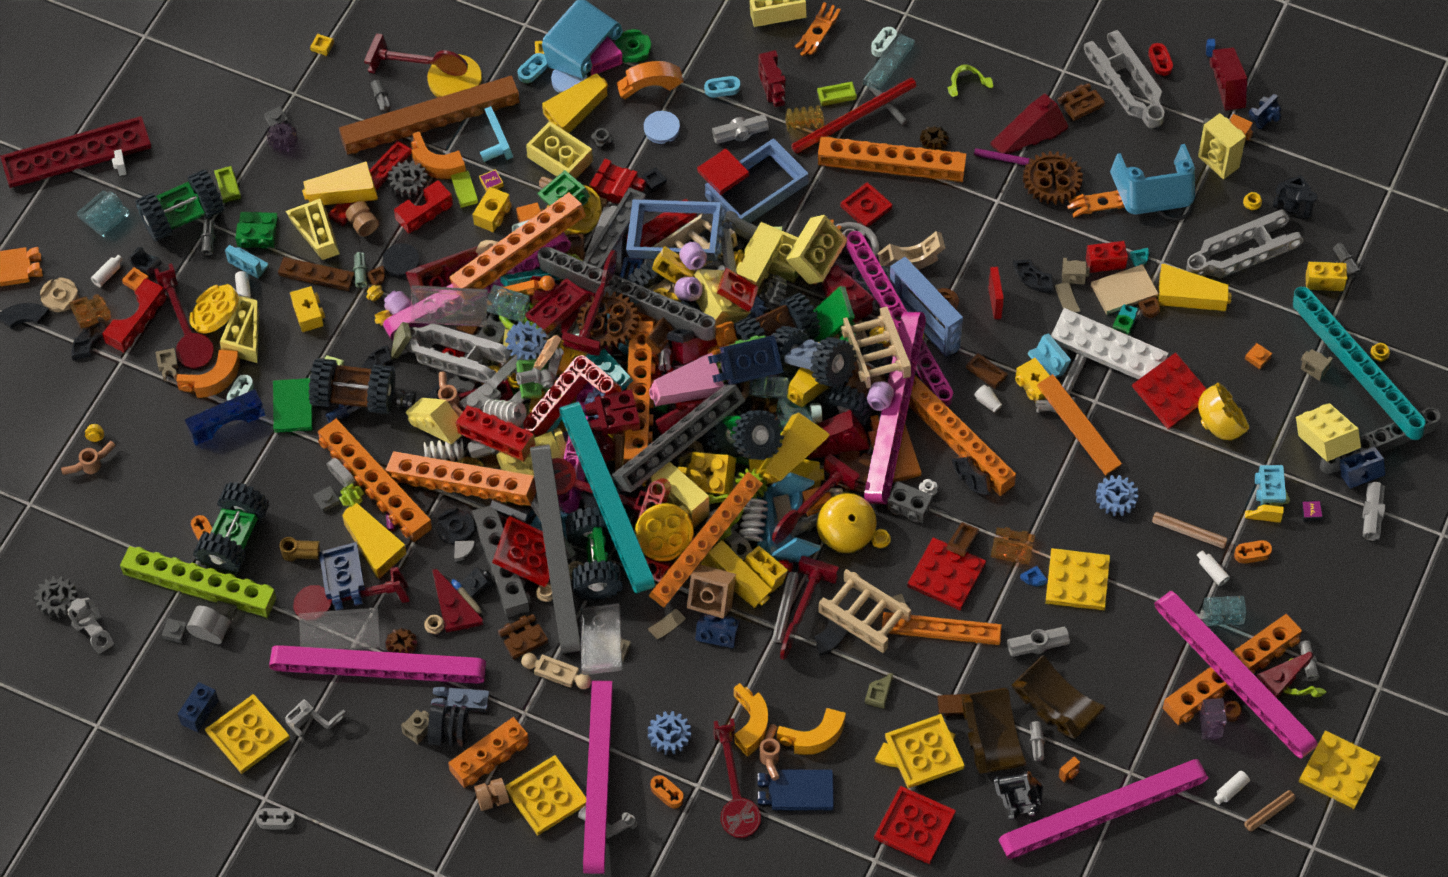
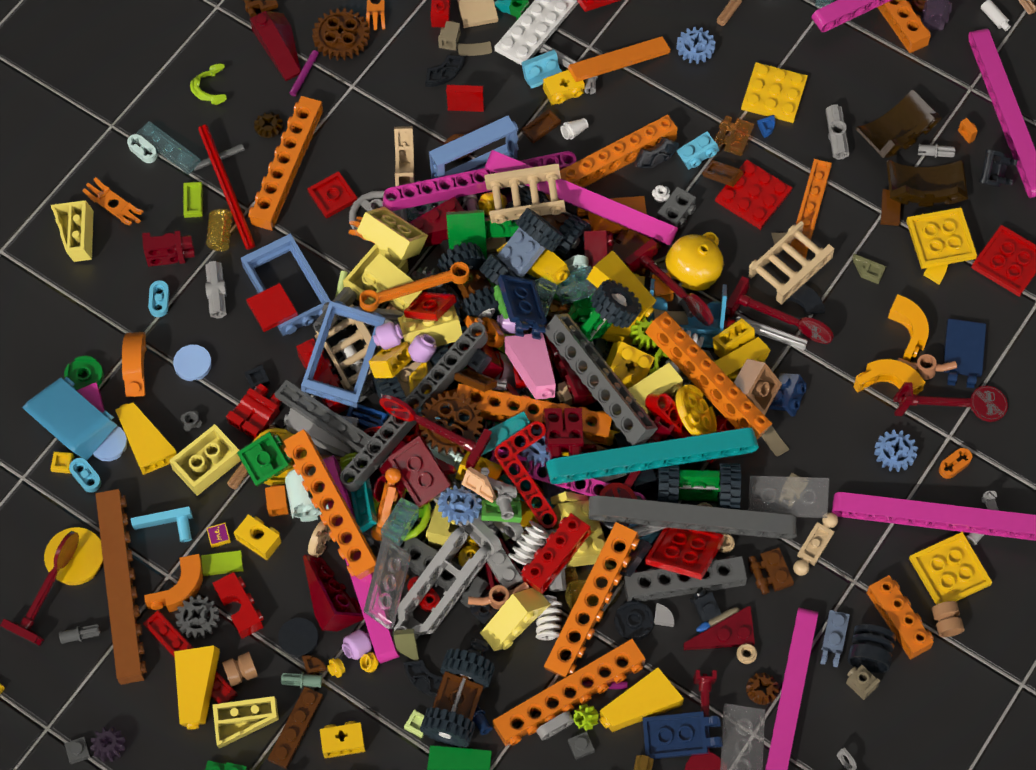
camera: 80 degrees left, 5 degrees up
(753, 271) = (414, 286): none -> orange piece
(880, 395) = (575, 202): lavender head -> none
(985, 513) = (698, 150): none -> medium azure bracket

